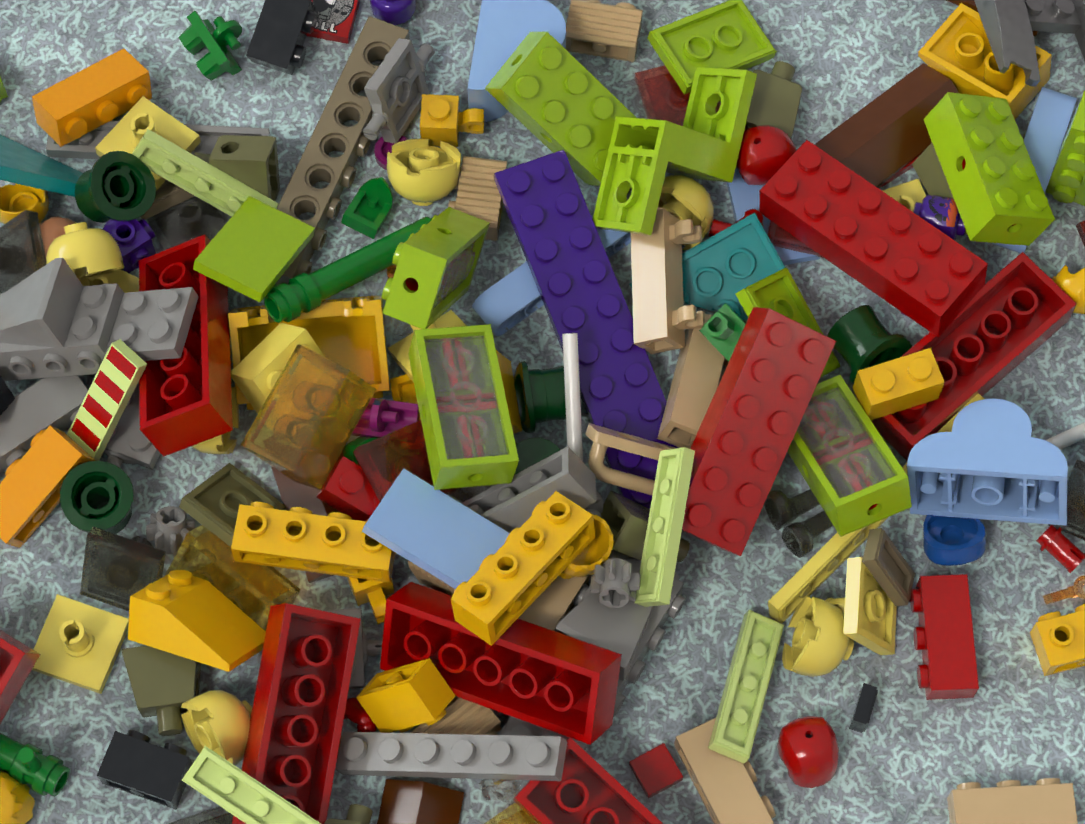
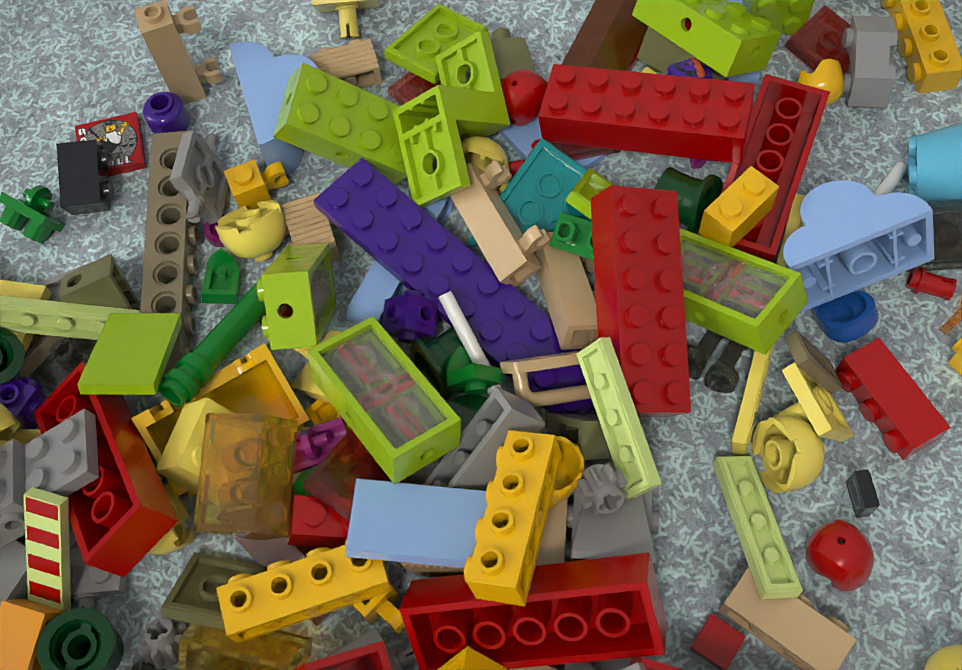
camera: 20 degrees left, 5 degrees down
(531, 336) = (410, 316): none -> dark purple brick
(551, 421) = (468, 376): none -> green plate

